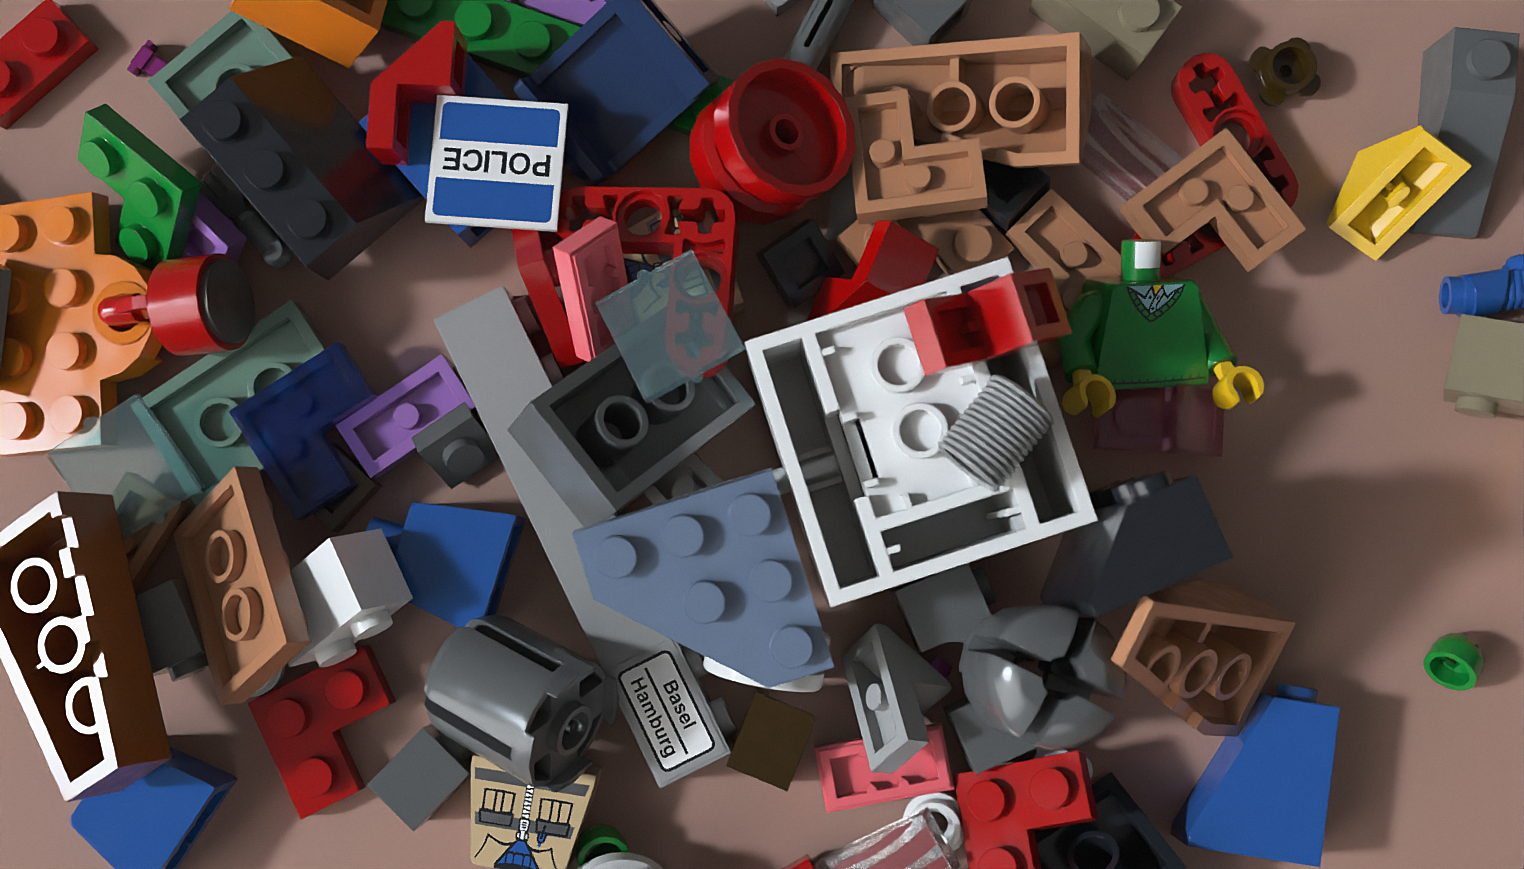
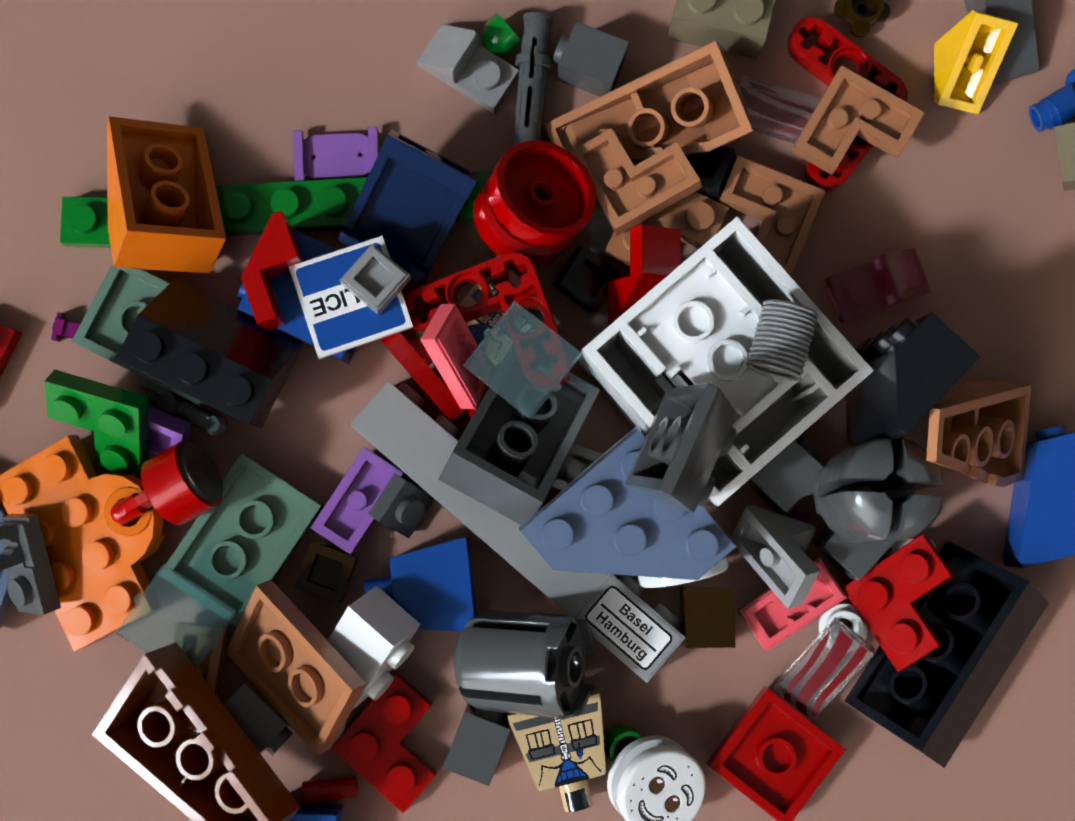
camera: 30 degrees left, 0 degrees up
(211, 748) = (317, 791): none -> red piece
(289, 423) = (278, 541): clear blue tile -> none
(534, 153) = (375, 279): none -> light grey tile
(814, 515) = (684, 446): none -> dark grey slope
(987, 321) = (743, 266): red slope -> none
(1146, 335) = (846, 230): green torso -> none

